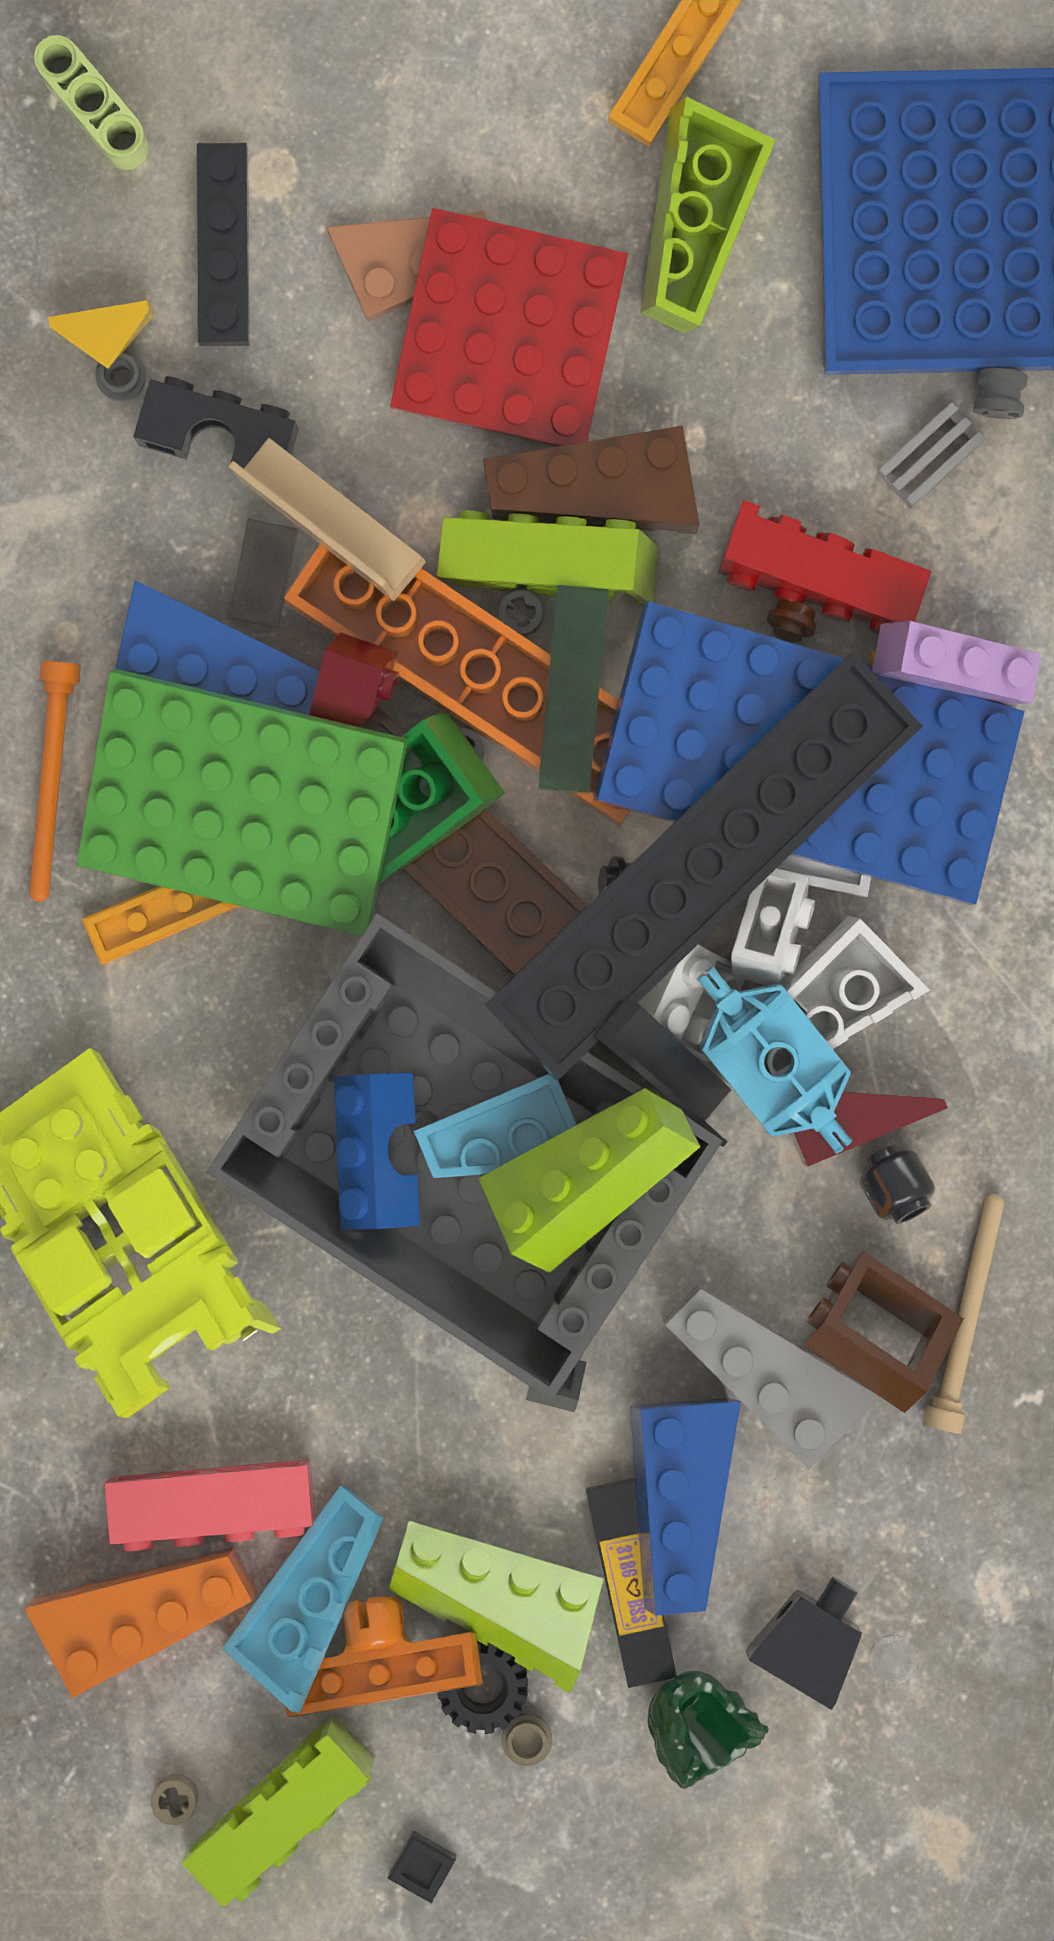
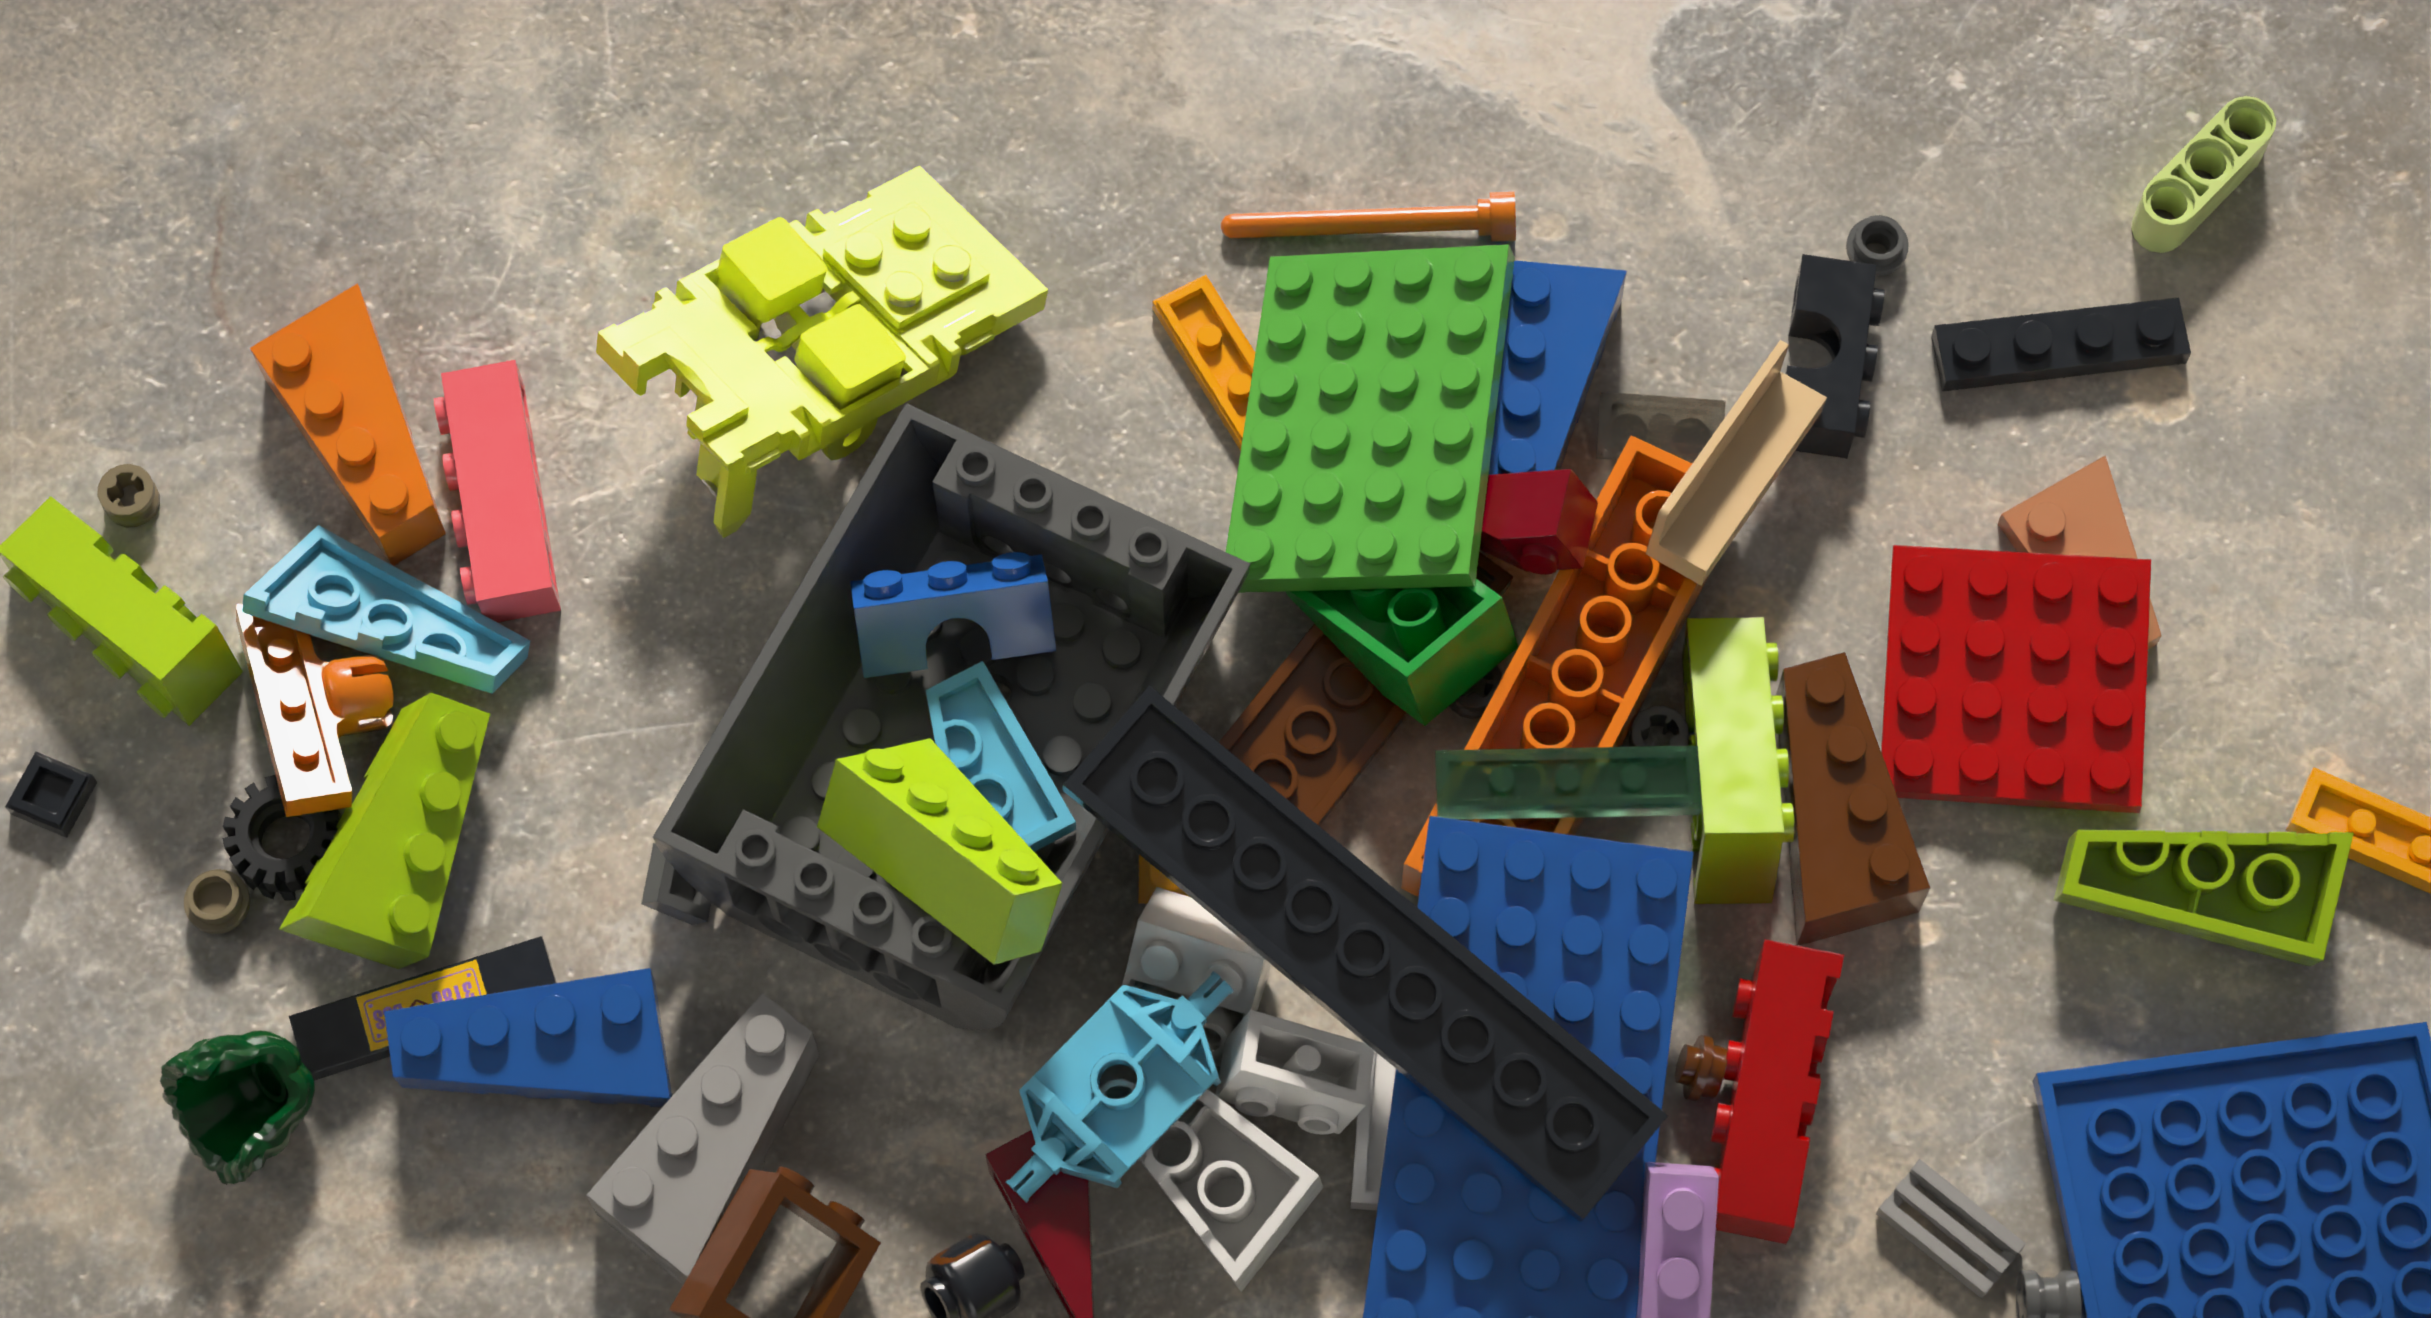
camera: 85 degrees right, 20 degrees down
(103, 331) = (1928, 217): yellow slope -> none
(664, 1063) = (1093, 937): black panel -> none
(810, 1642) = (356, 1238): black torso -> none

